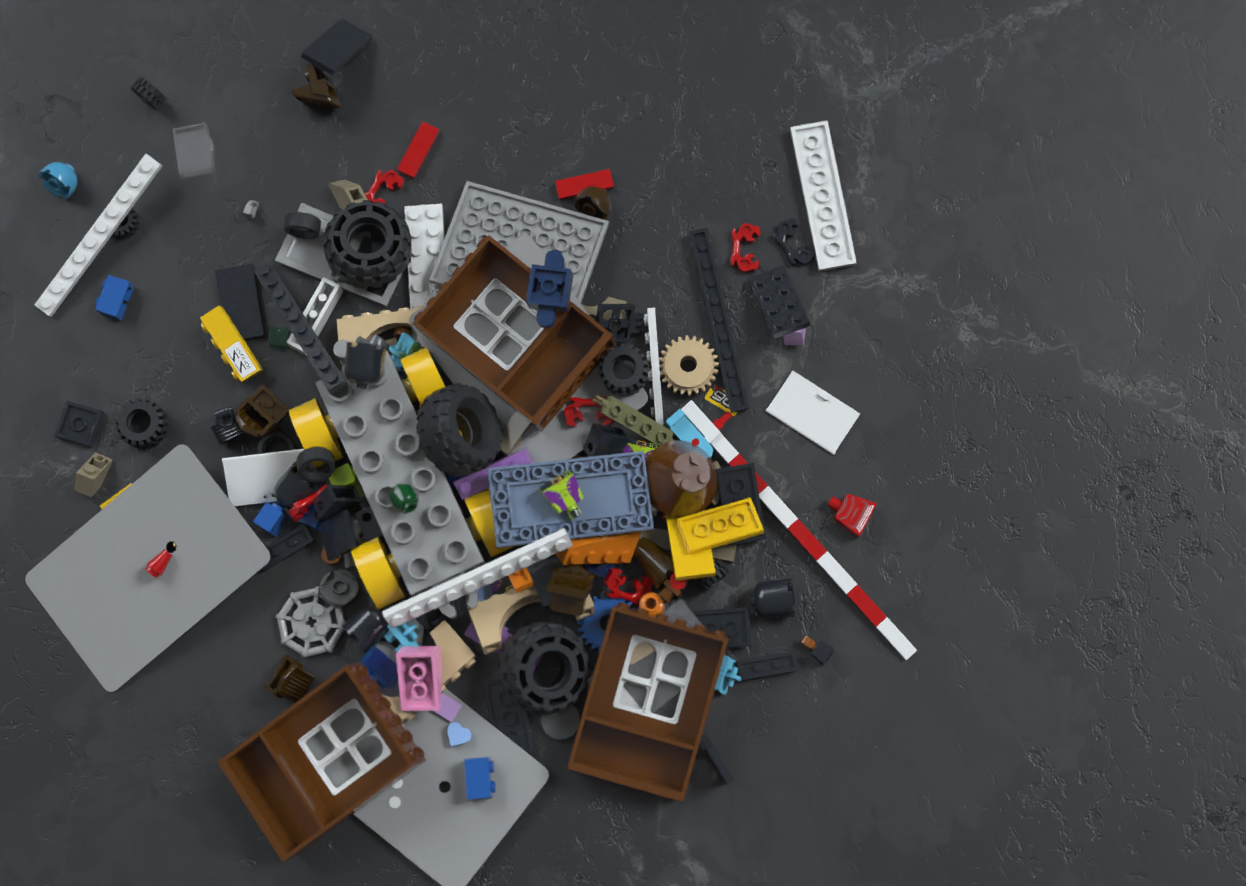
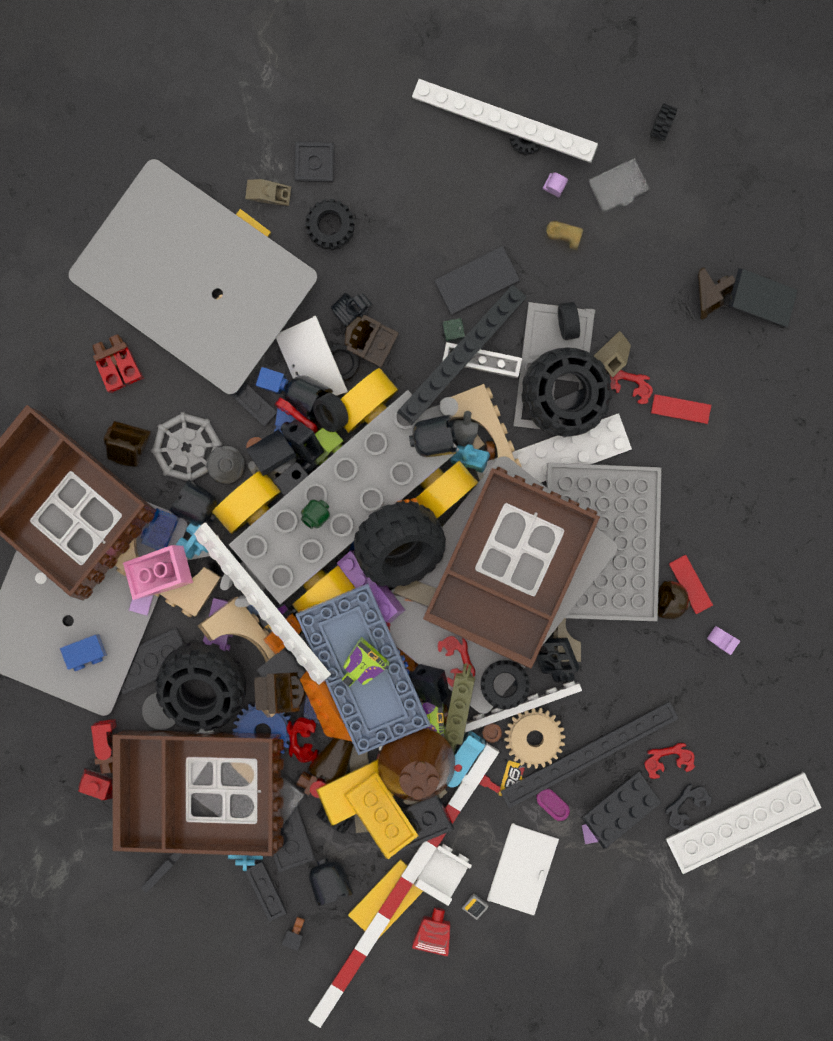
camera: 70 degrees right, 10 degrees up
(59, 179) = (551, 62): dark azure cylinder -> none
(112, 297) = (447, 155): blue piece -> none
(158, 563) = (197, 288): red cone -> none
(173, 206) = (555, 184): none -> lavender leg
(202, 668) = (113, 358): none -> red hips
(221, 209) = (558, 230): none -> clear yellow leg
(231, 344) = (431, 287): yellow brick -> none
(250, 209) = (574, 262): light grey tile -> none
(458, 734) = (118, 620): light blue tile -> none
(549, 289) = (558, 596): dark blue brick -> none
(577, 784) = (103, 744): none -> red hips
(615, 803) = (96, 785): none -> red torso
(645, 167) = (723, 640): none -> lavender leg
(653, 603) = (292, 768): orange head -> none
(671, 405) = (491, 732): none -> dark orange tile
(757, 367) = (553, 804): none -> magenta tile
(796, 488) = (442, 874): none -> white panel
(809, 569) = (369, 906): none -> yellow tile
(836, 466) = (475, 906): none -> slope

